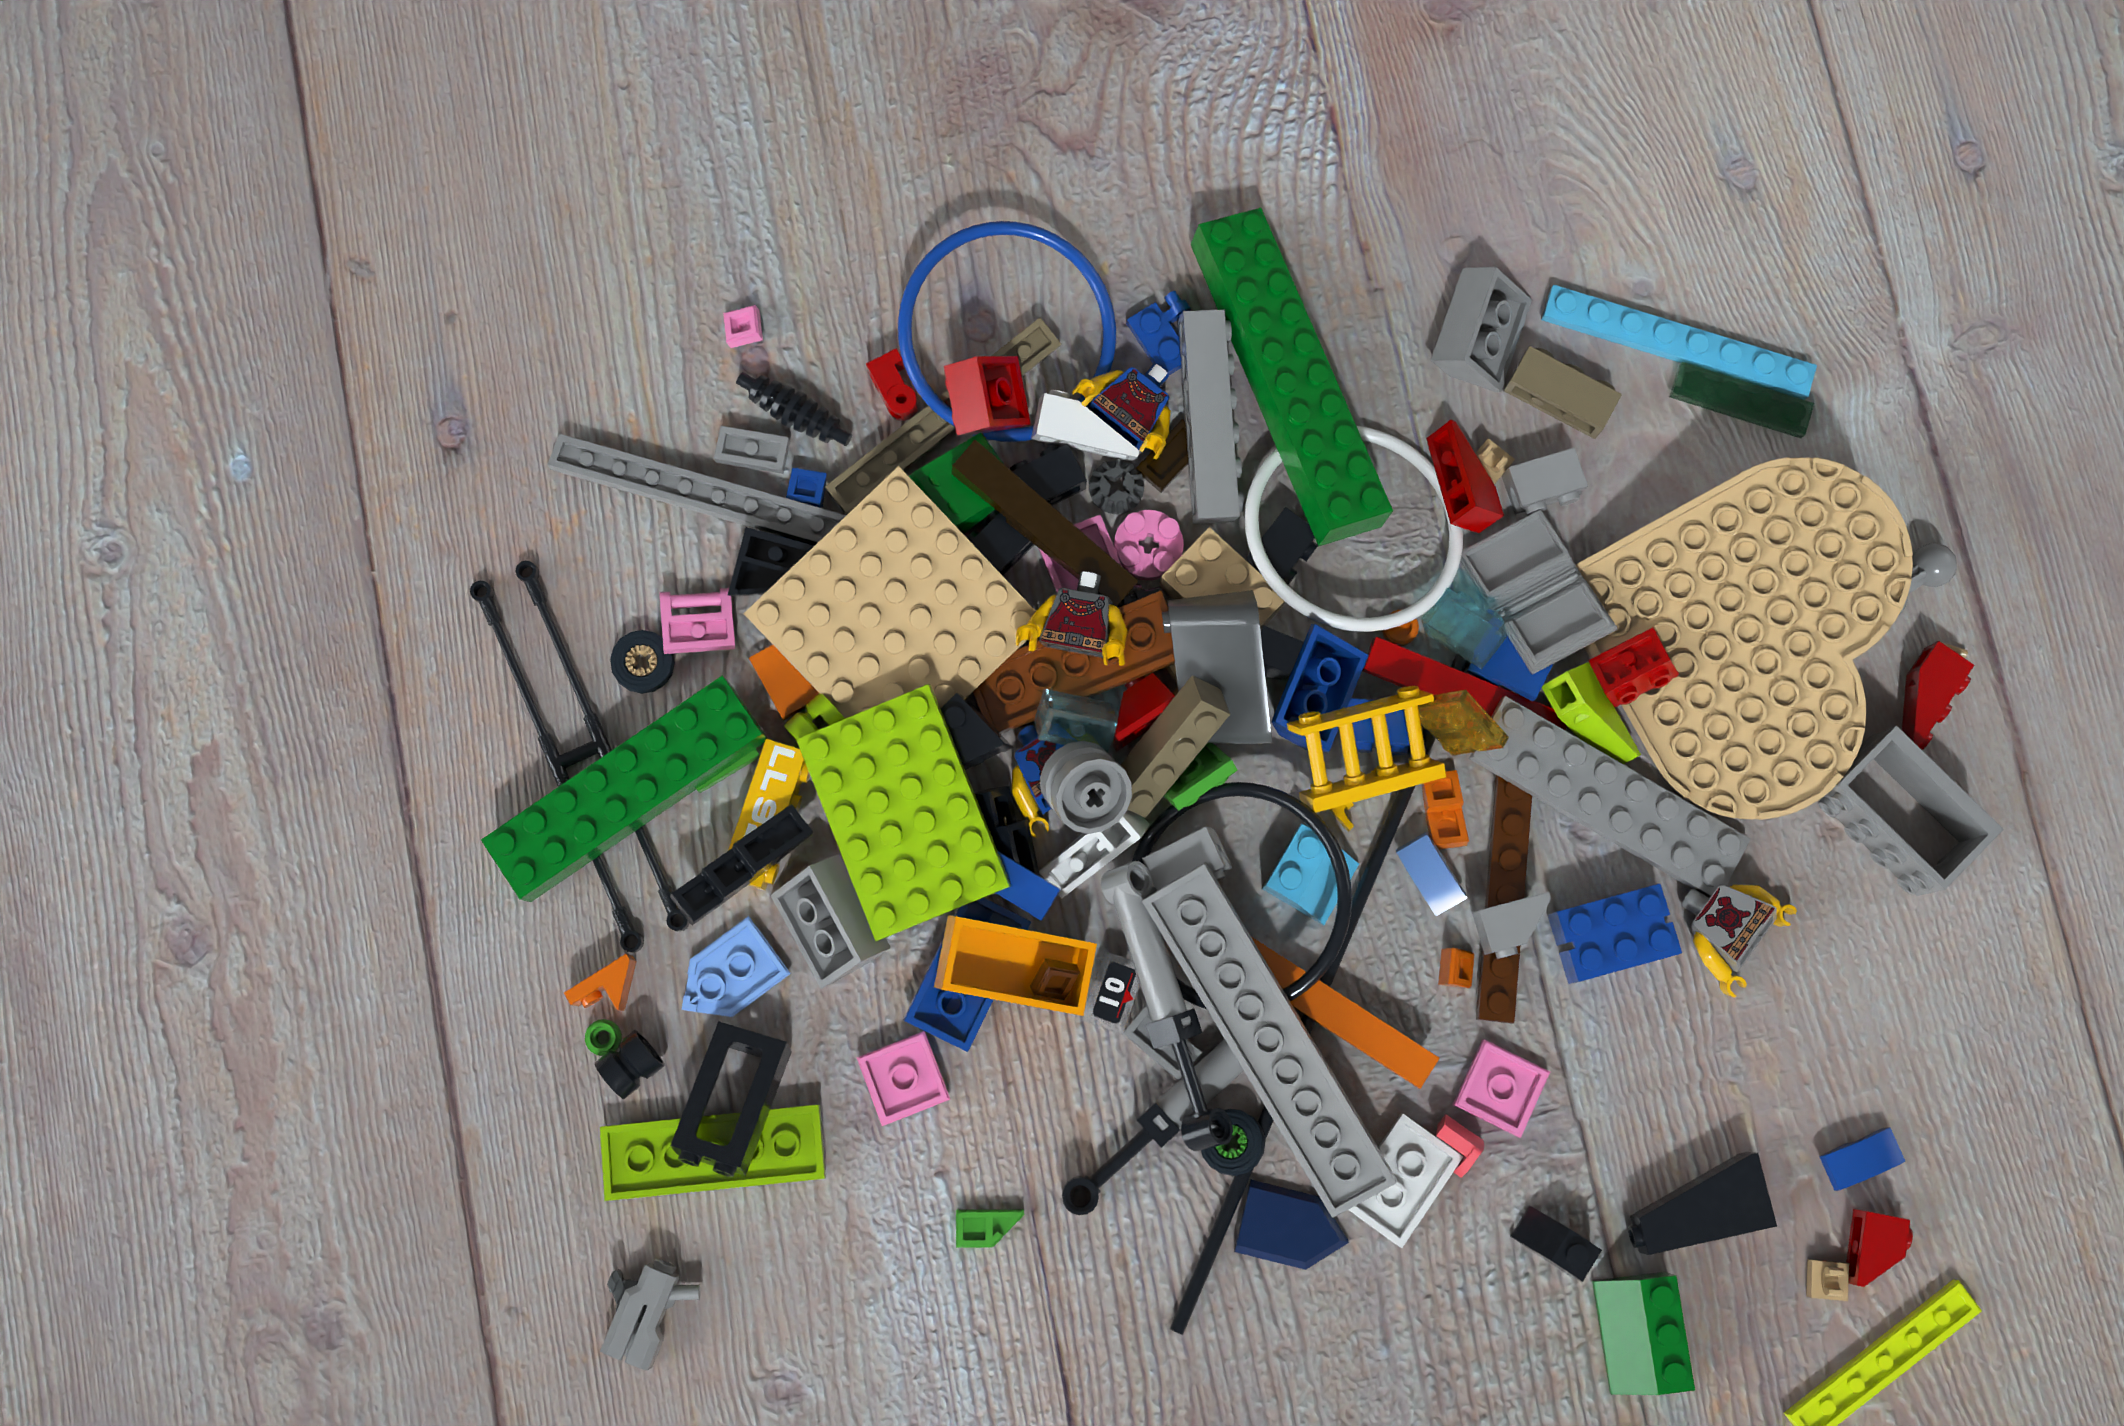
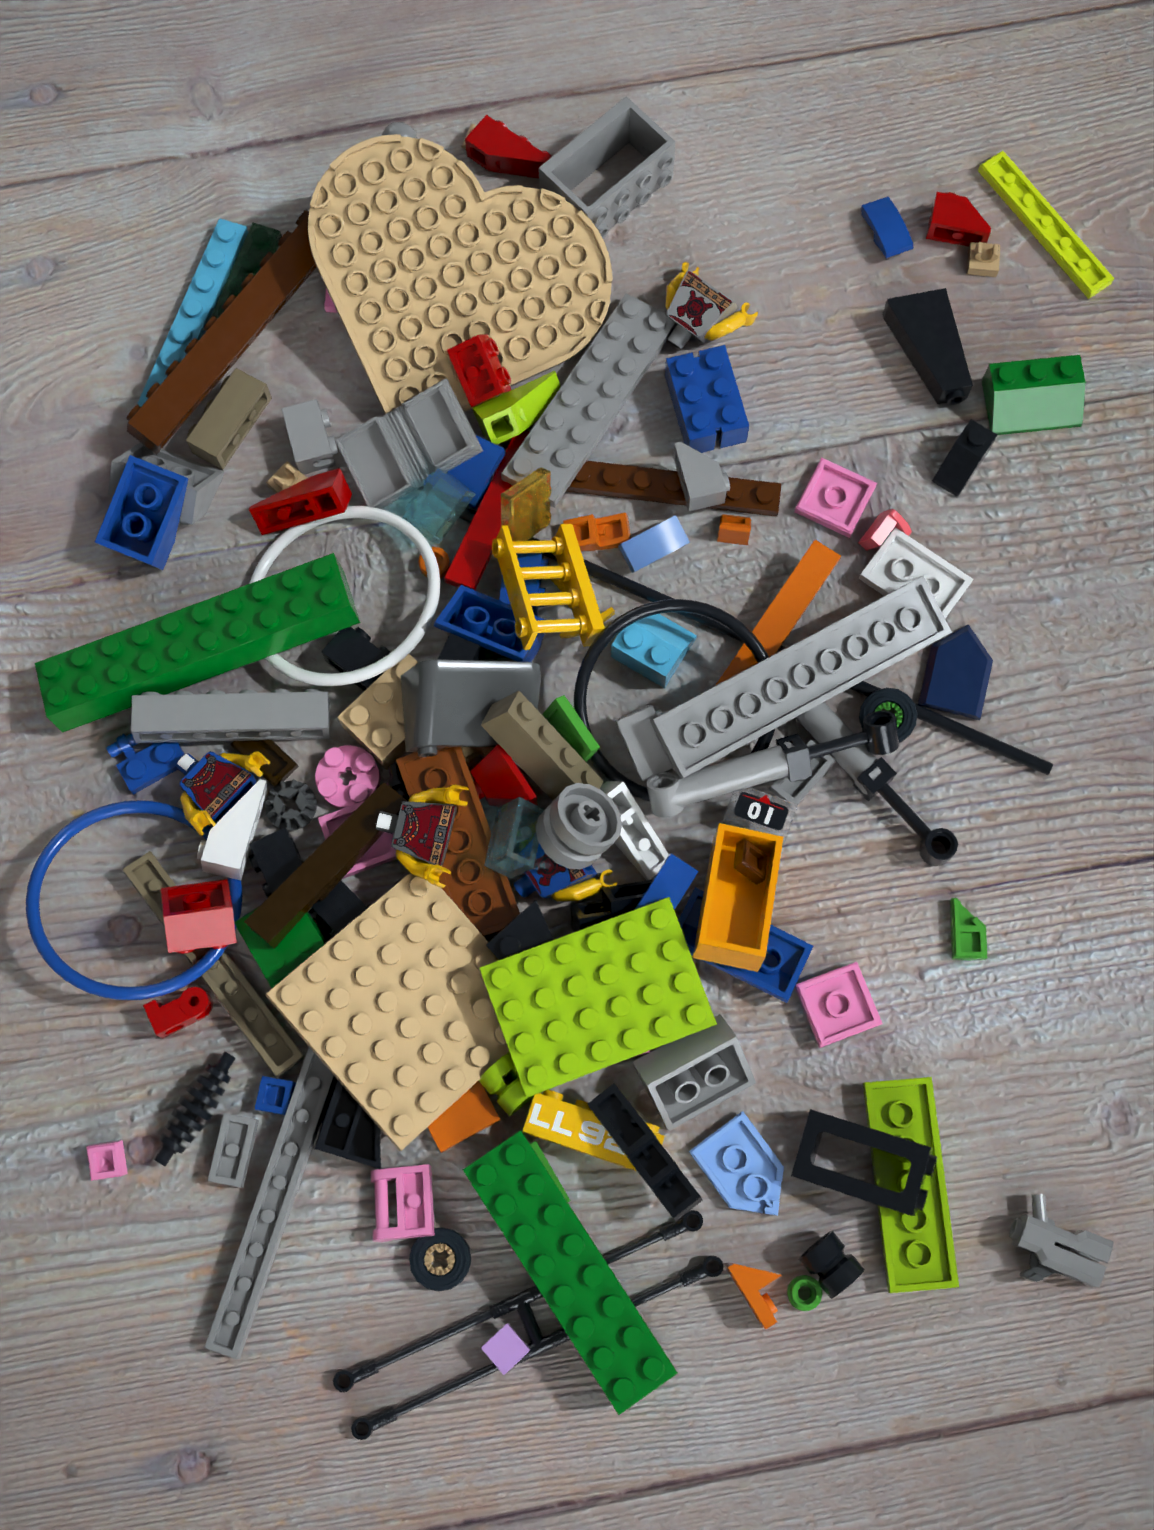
camera: 85 degrees left, 5 degrees down
(551, 729) = (505, 1348): none -> lavender tile
(1436, 306) = (144, 513): none -> blue slope
(1655, 379) = (224, 340): none -> reddish brown brick

